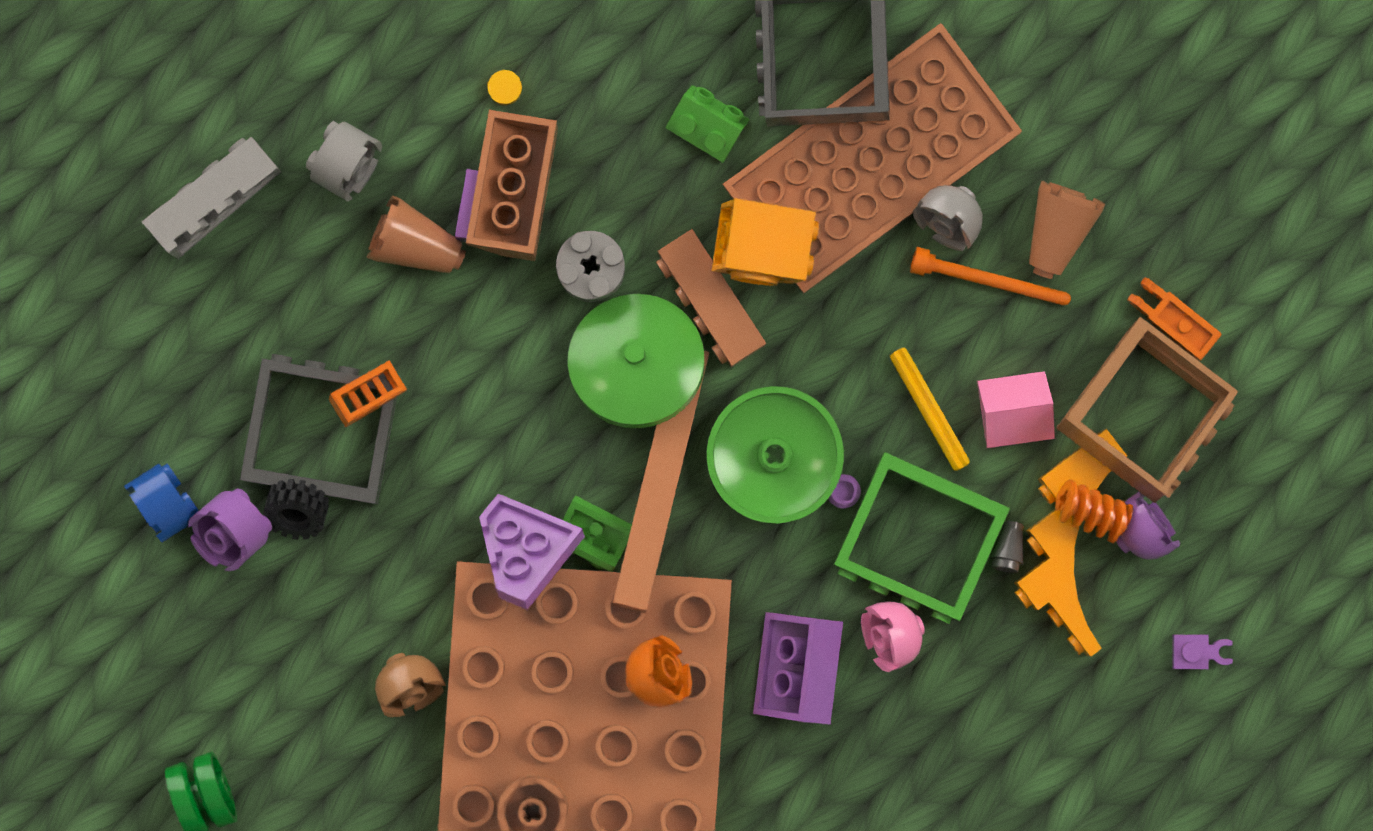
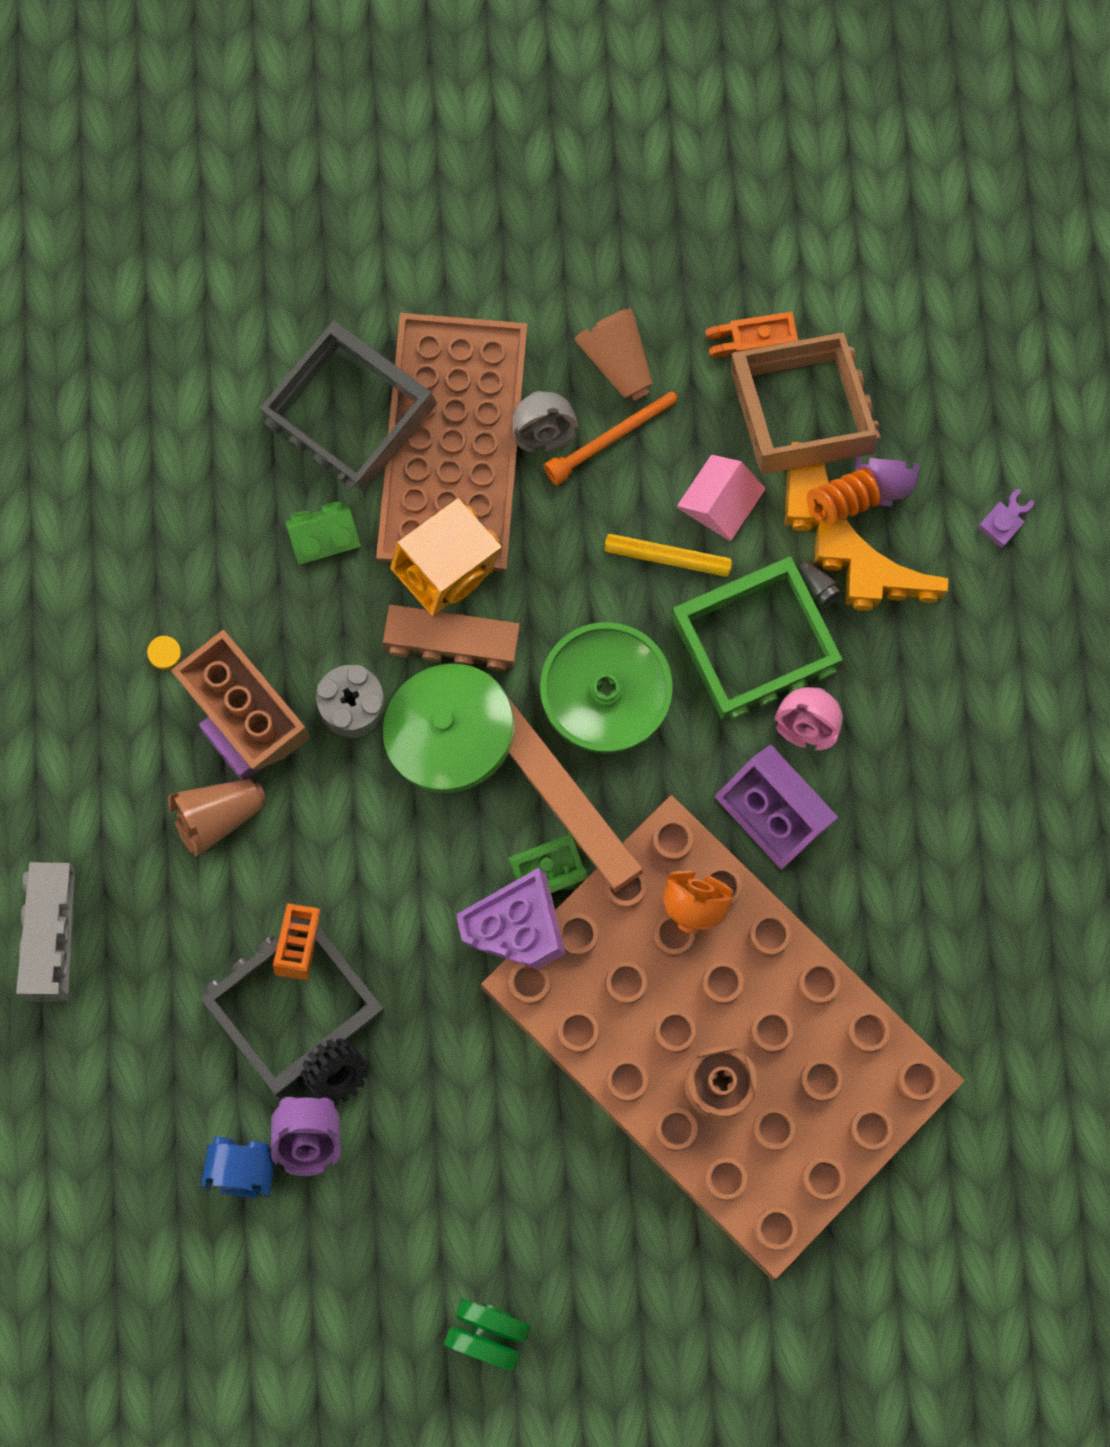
camera: 55 degrees left, 10 degrees down
(343, 160) = (109, 810): light grey brick -> none
(407, 683) = (538, 1103): medium nougat cylinder -> none
(846, 492) = (678, 663): medium lavender plate -> none

